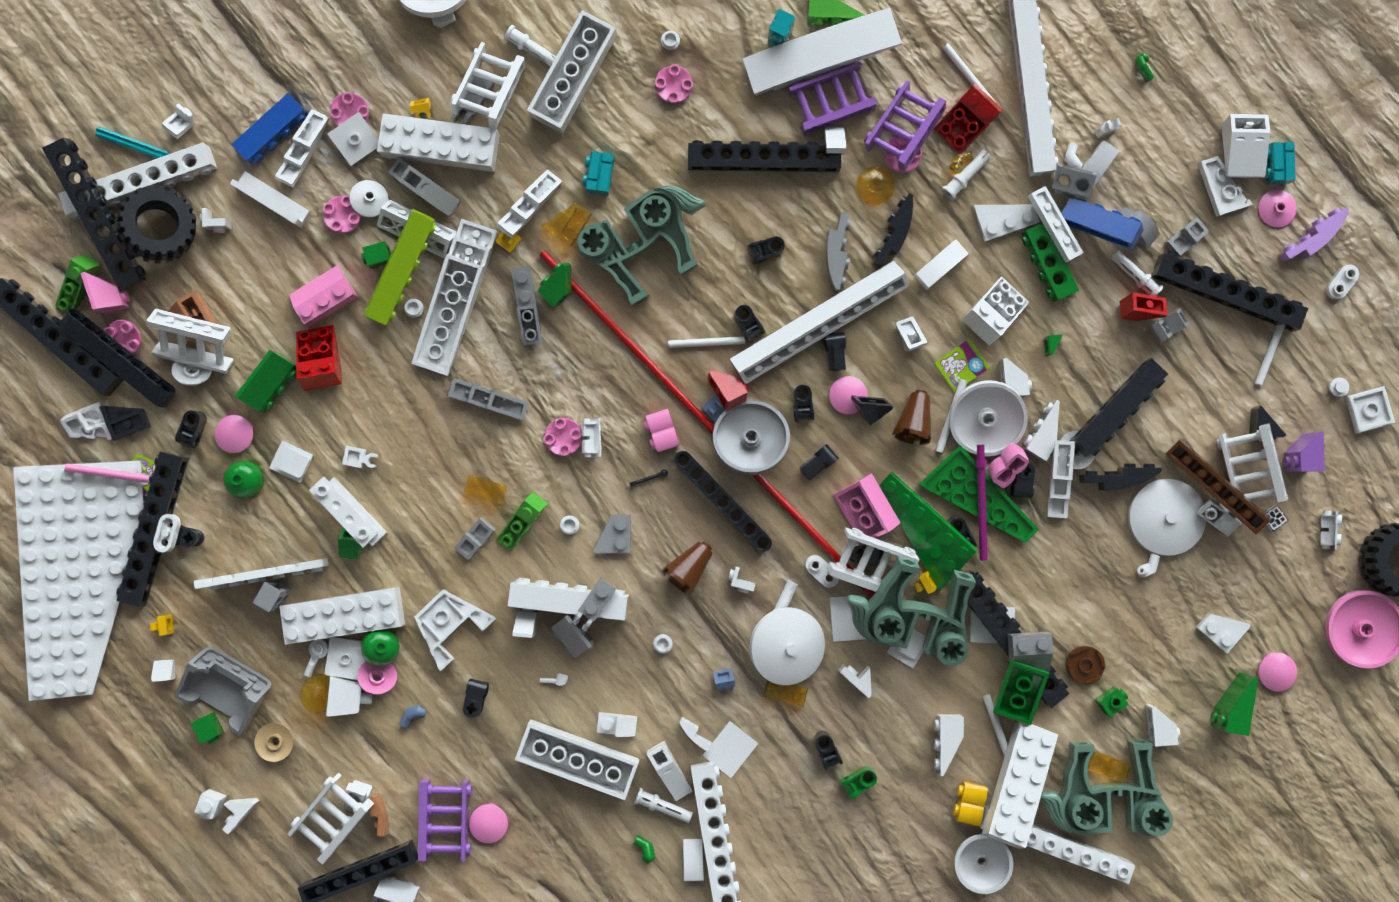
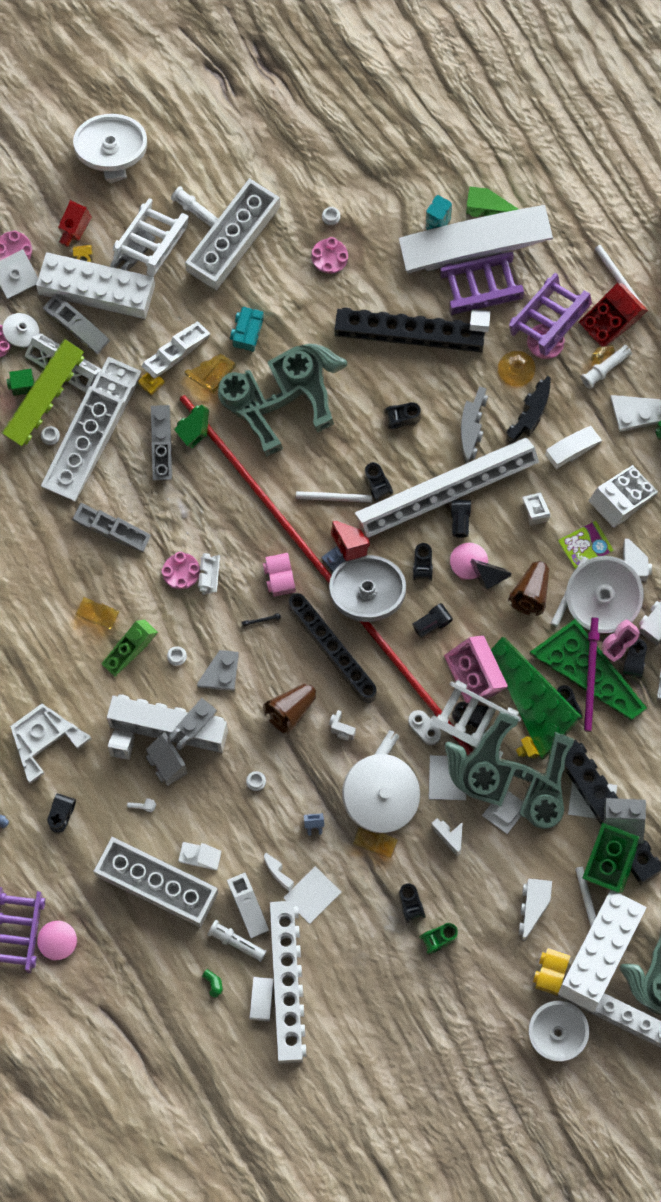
camera: 10 degrees right, 15 degrees down
(409, 71) = (73, 223): none -> red torso
(475, 538) = (81, 659): light grey slope -> none

